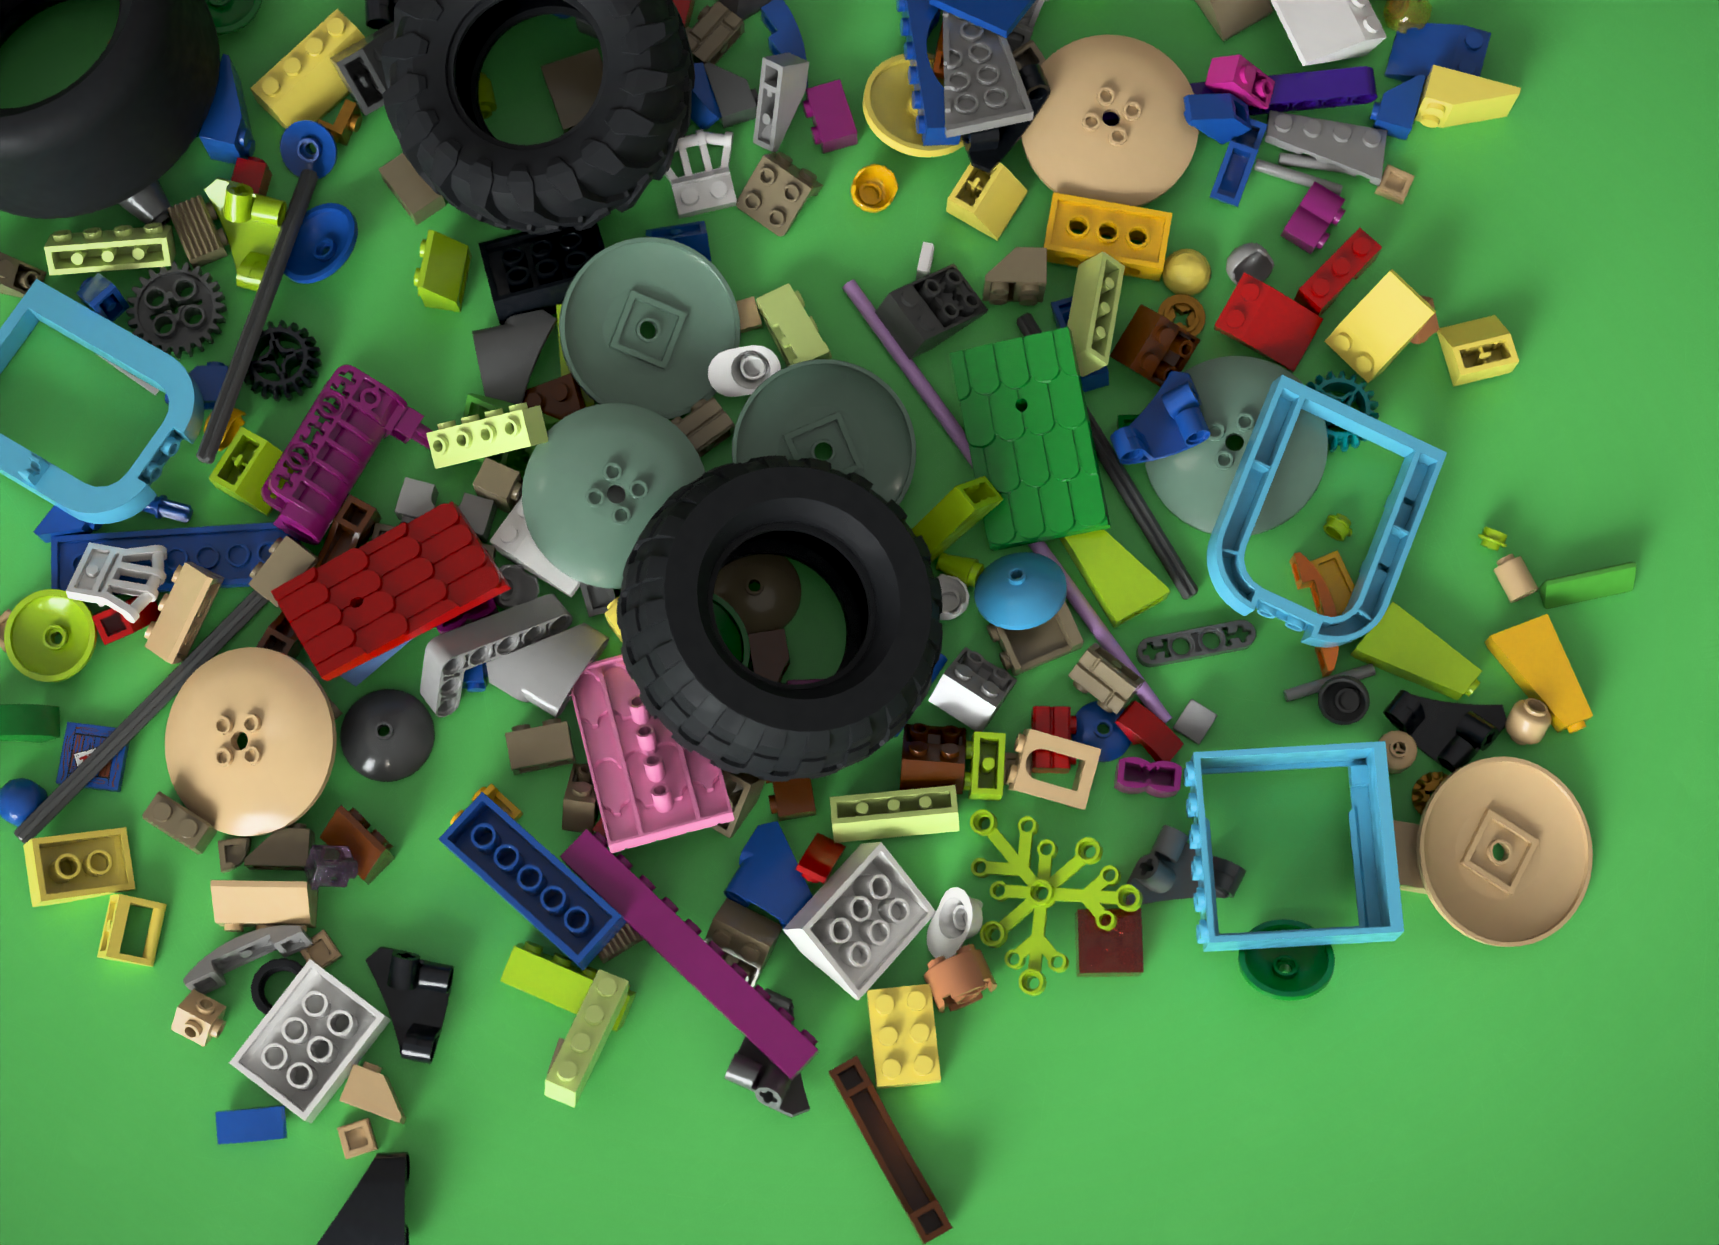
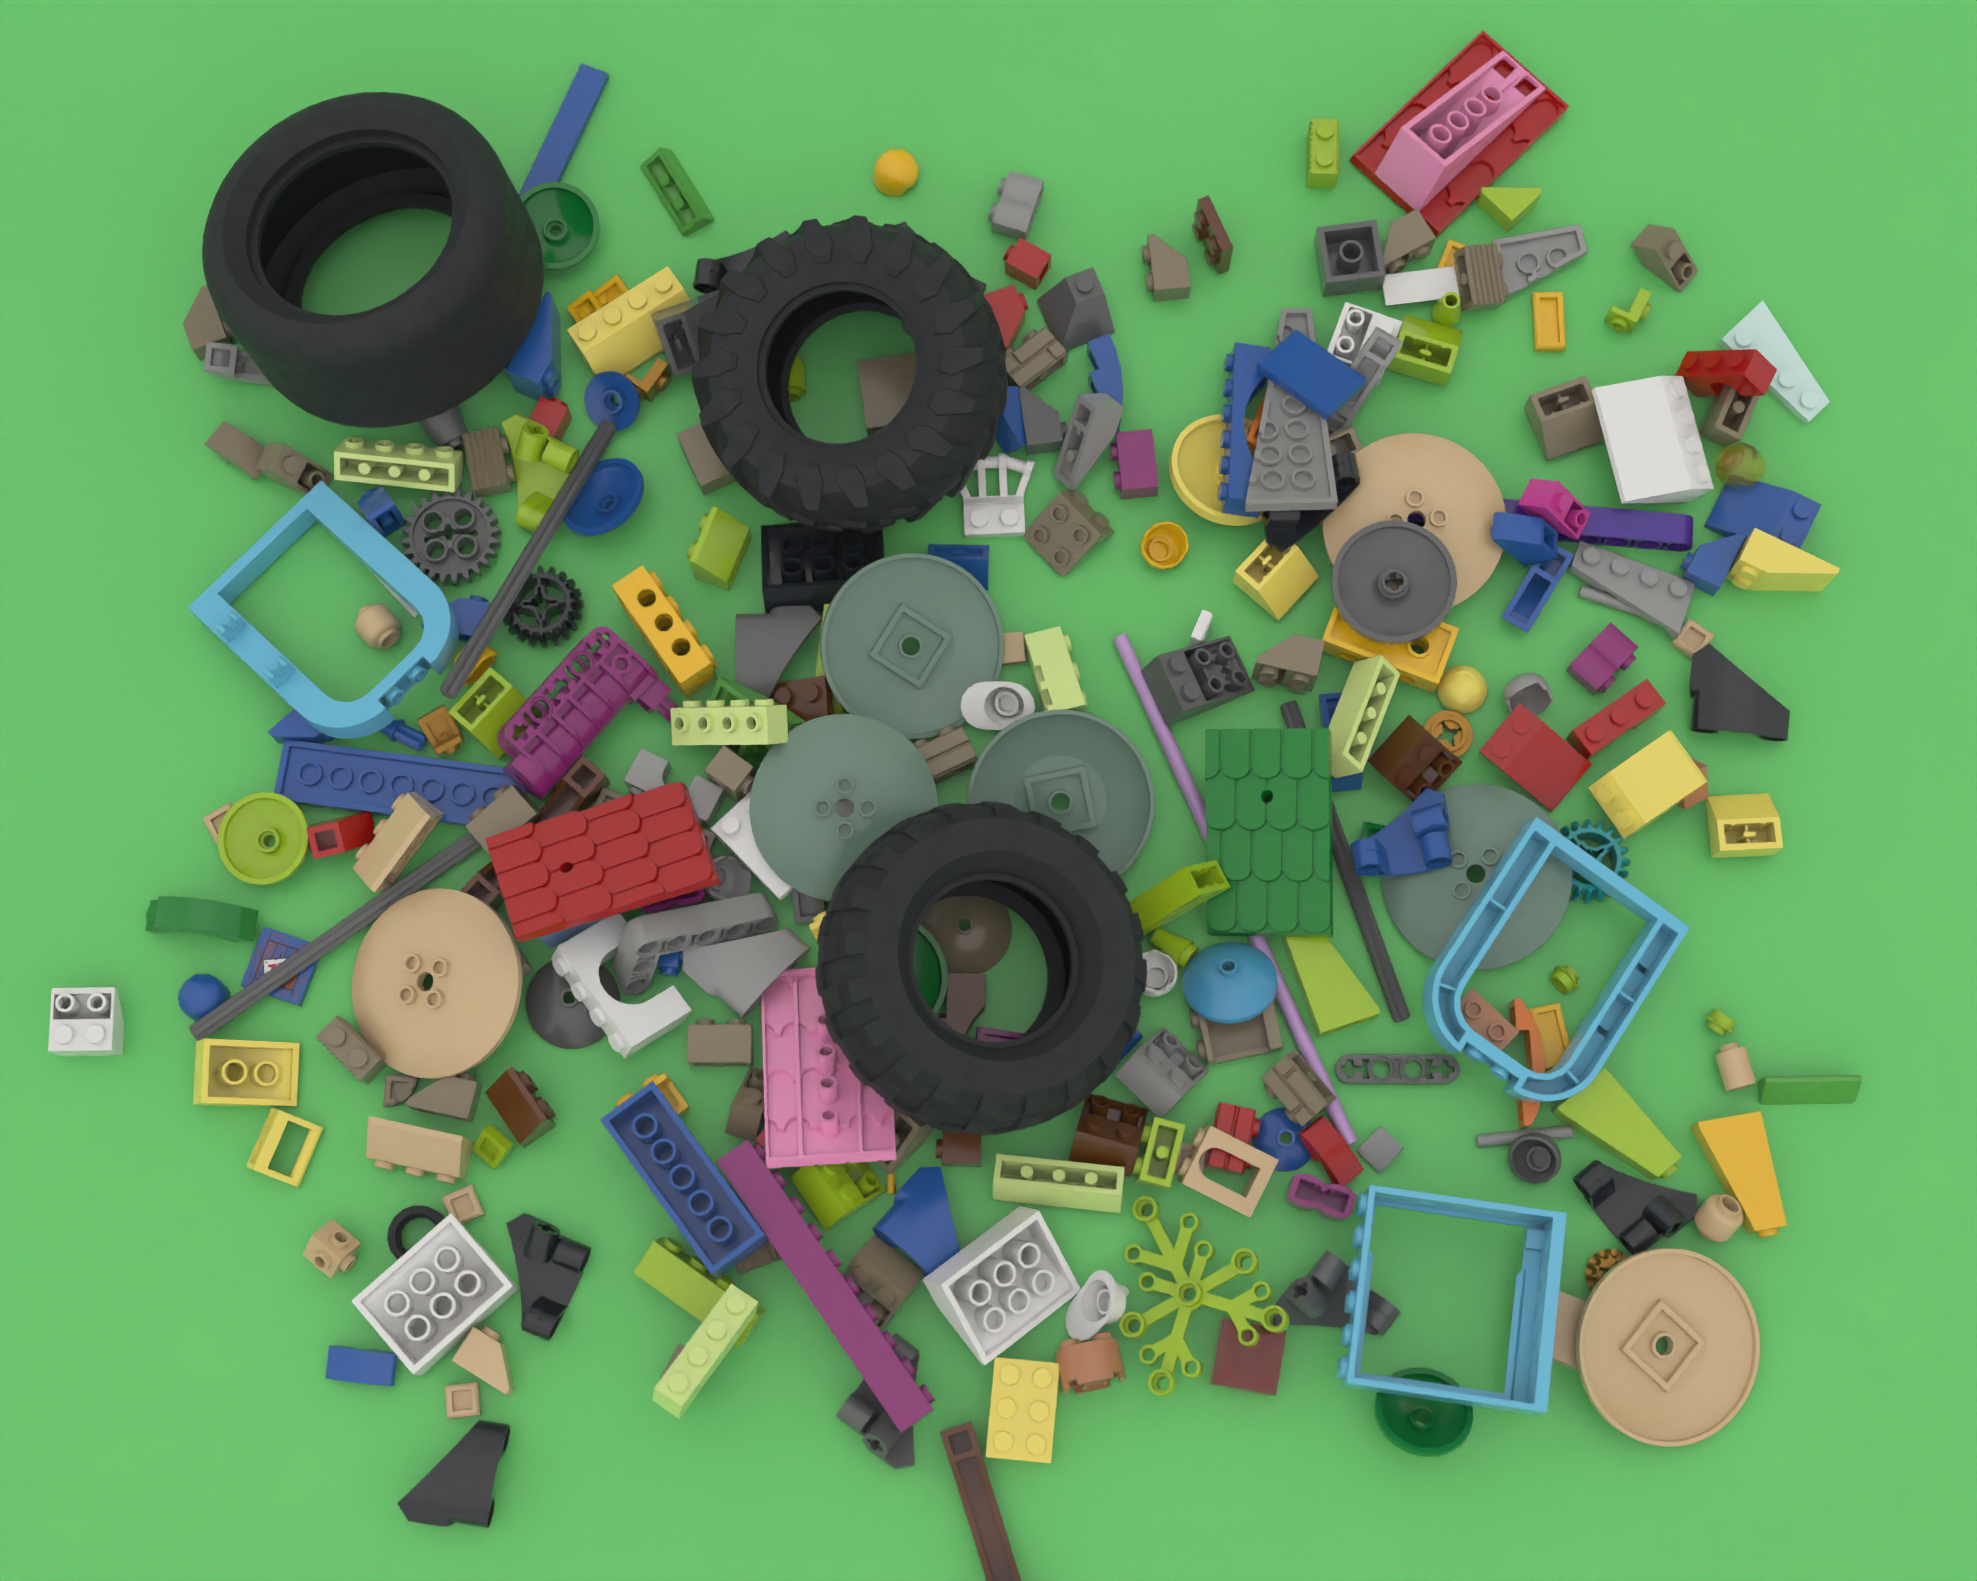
camera: 15 degrees right, 0 degrees up
(100, 572) = (326, 781): white plate -> none
(121, 409) = (377, 626): none -> tan head
(204, 498) = (441, 730): none -> pearl gold bracket
(210, 971) = (387, 1189): light grey slope -> none
(268, 58) = (592, 301): none -> yellow slope
(330, 866) = (488, 1125): clear purple brick -> none
(338, 896) = (492, 1146): none -> lime plate
(406, 361) = (664, 631): none -> yellow brick
(445, 745) = (626, 1025): none -> white arch
(681, 862) = (837, 1189): none -> lime slope
(732, 847) = (891, 1183): none -> yellow piece
(820, 859) = (975, 1214): red slope -> none
(1108, 154) = (1400, 555): none -> dark grey dish
(1273, 577) = (1486, 1020): none -> nougat brick
(1295, 176) = (1593, 613): light grey bar -> none
(1404, 745) = (1587, 1217): tan head -> none
(1444, 233) = (1731, 700): none -> black panel

